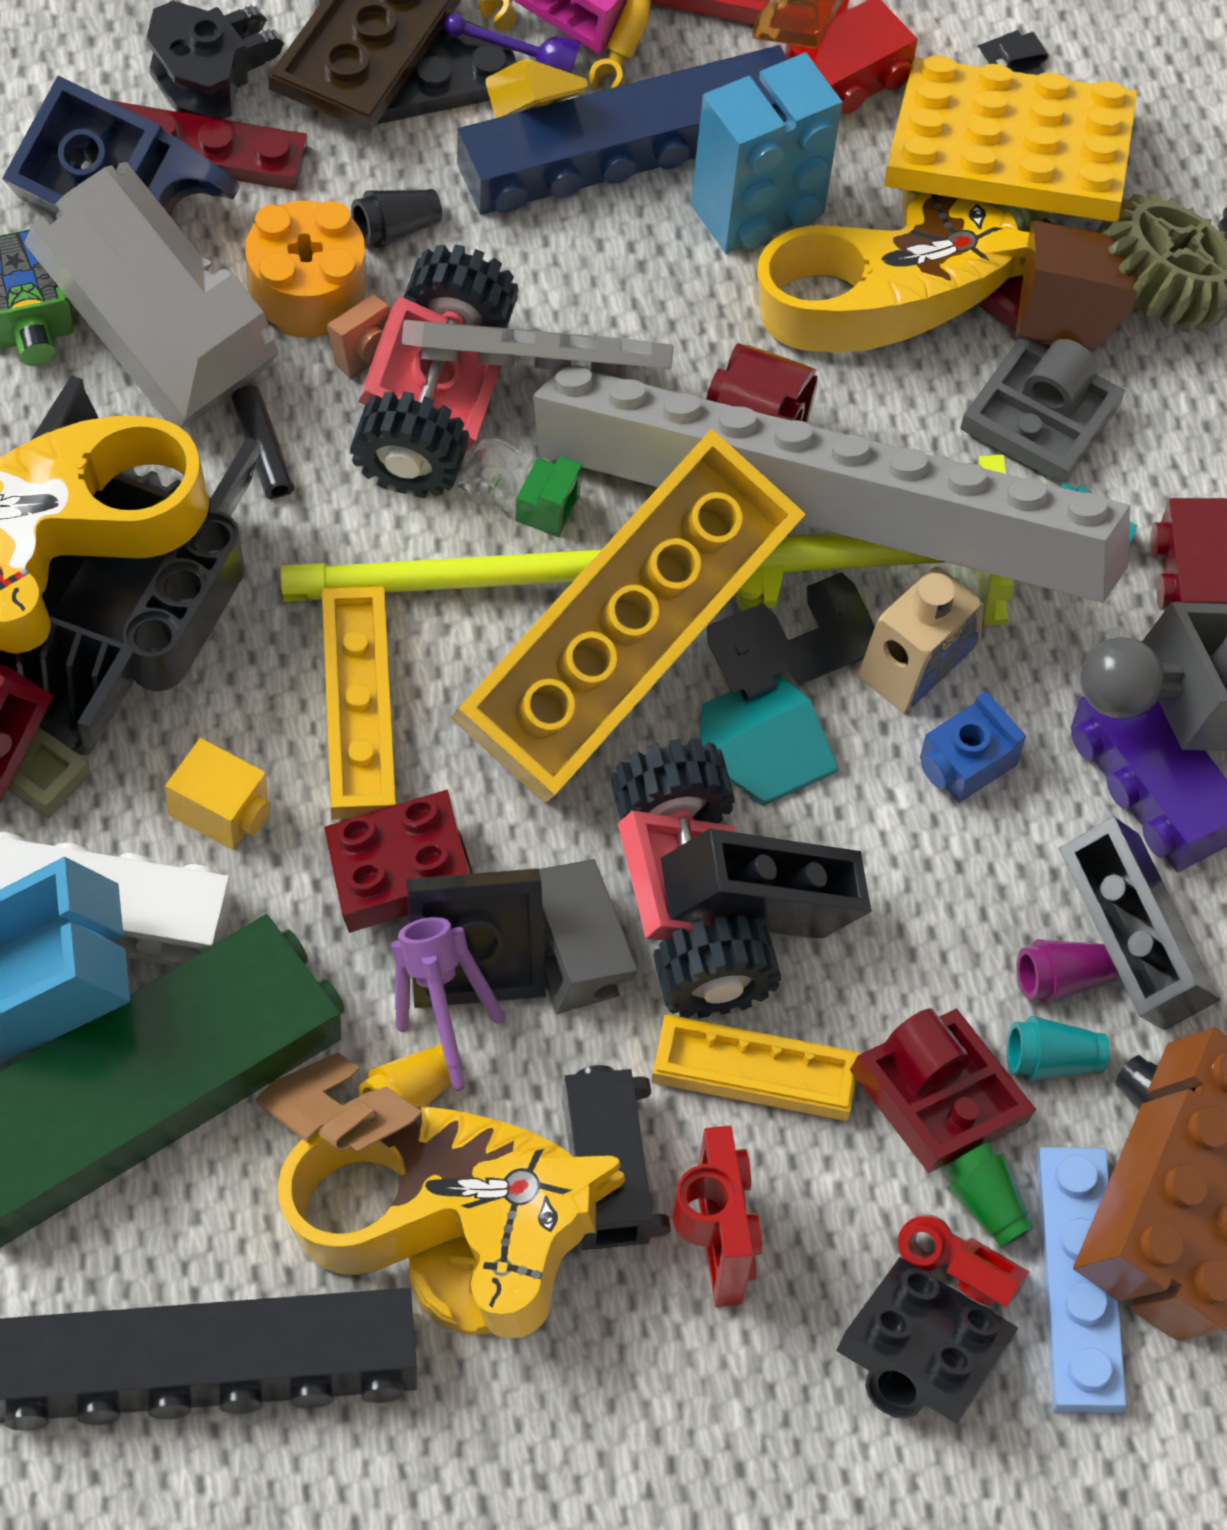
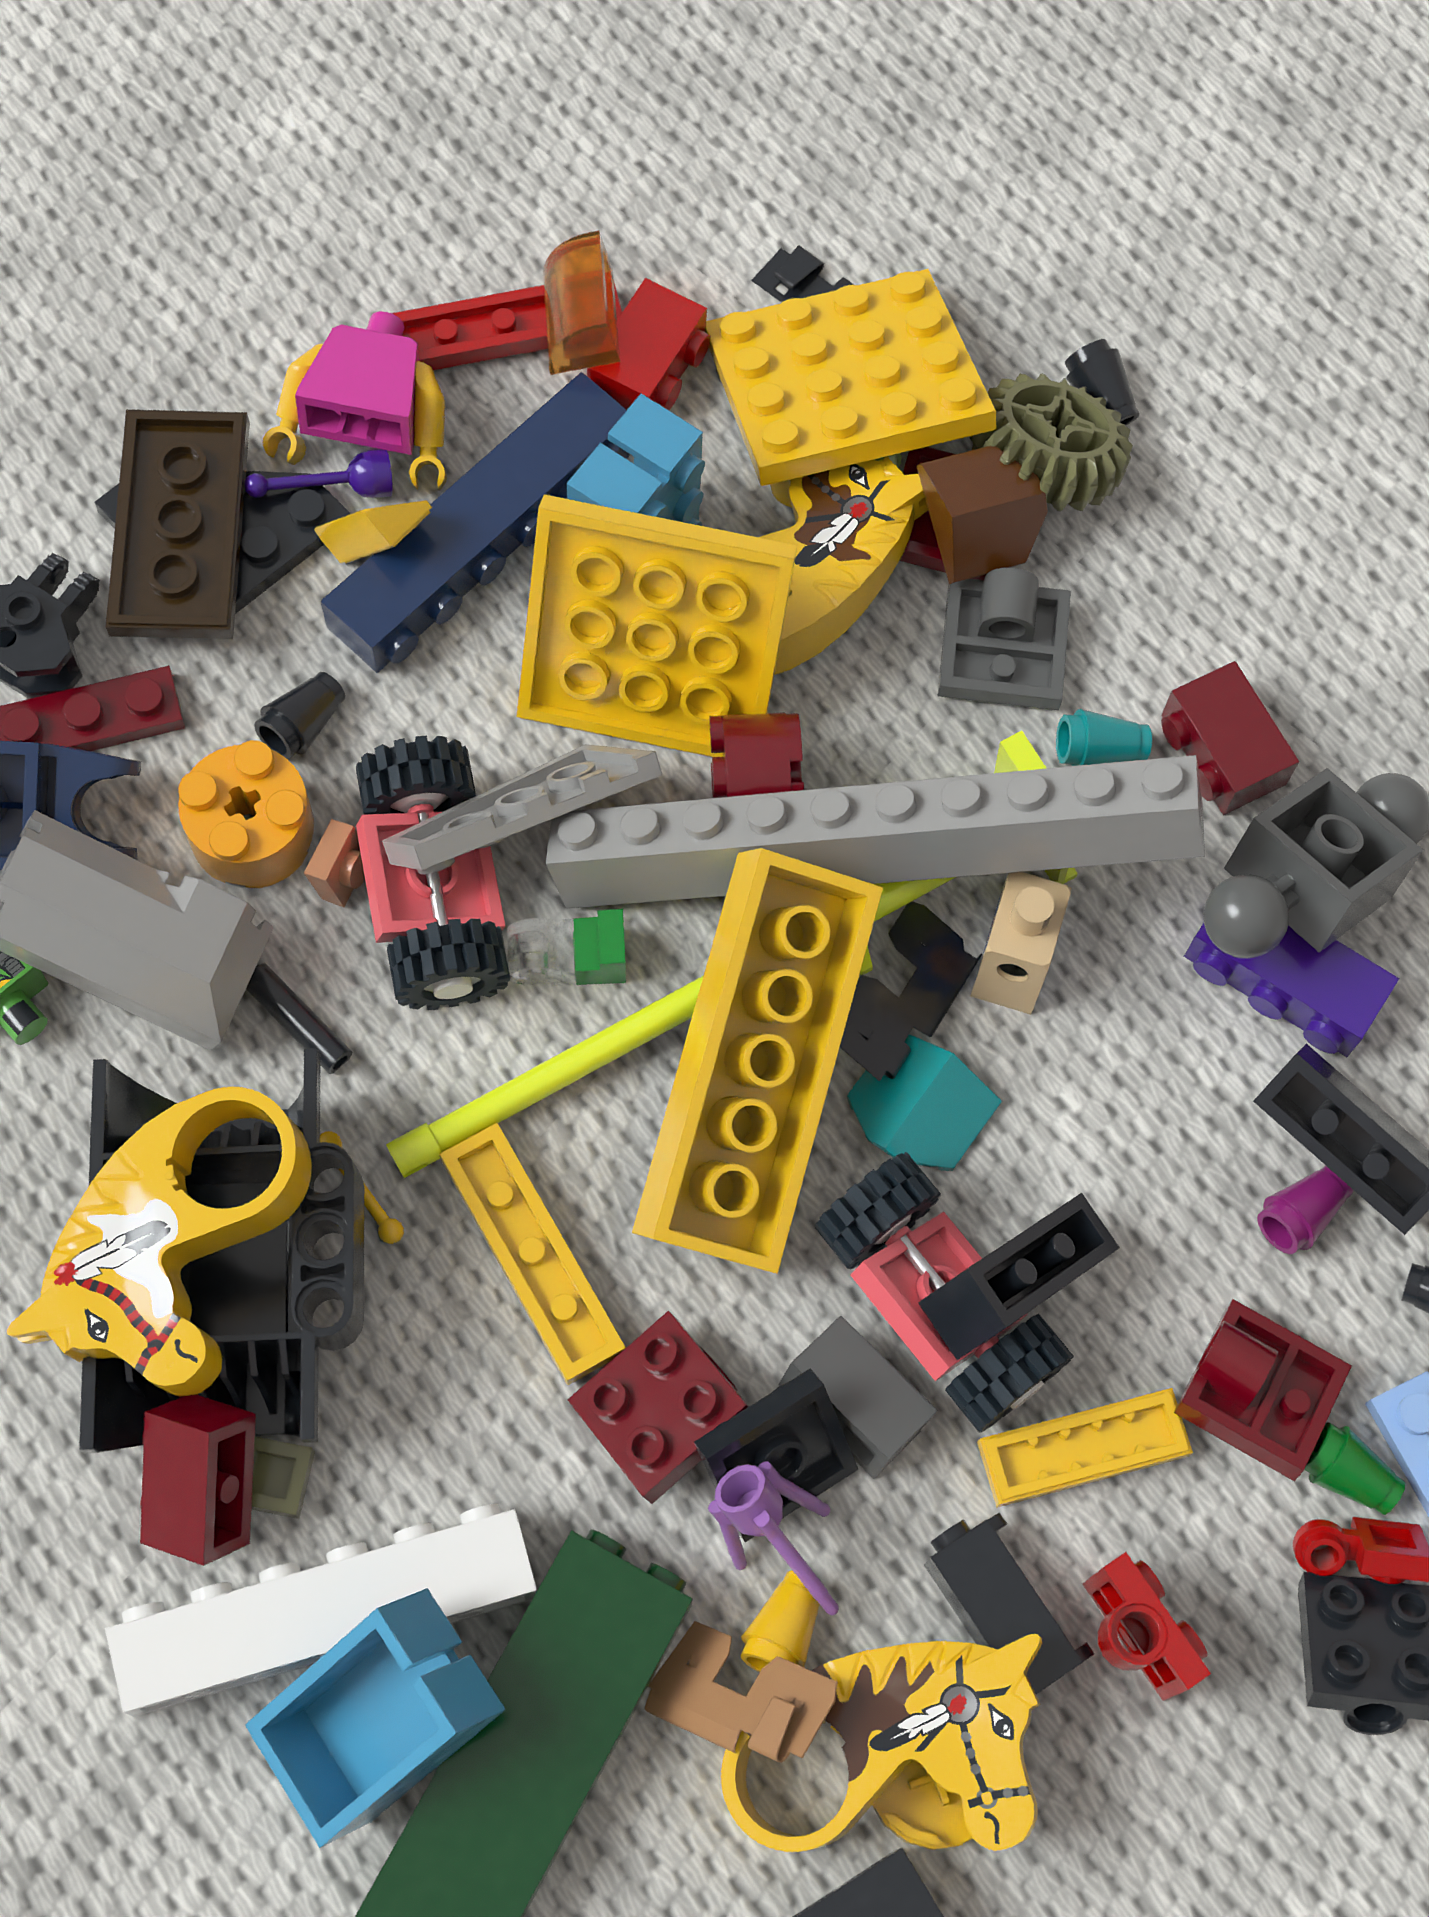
camera: 25 degrees left, 10 degrees up
(218, 794) = (454, 1419): yellow brick -> none
(248, 635) = (389, 1229): none -> yellow hinge
(721, 242) = (649, 624): none -> yellow plate
(992, 749) = (1127, 1005): blue brick -> none
(1054, 1050) = (1335, 1296): teal cone -> none

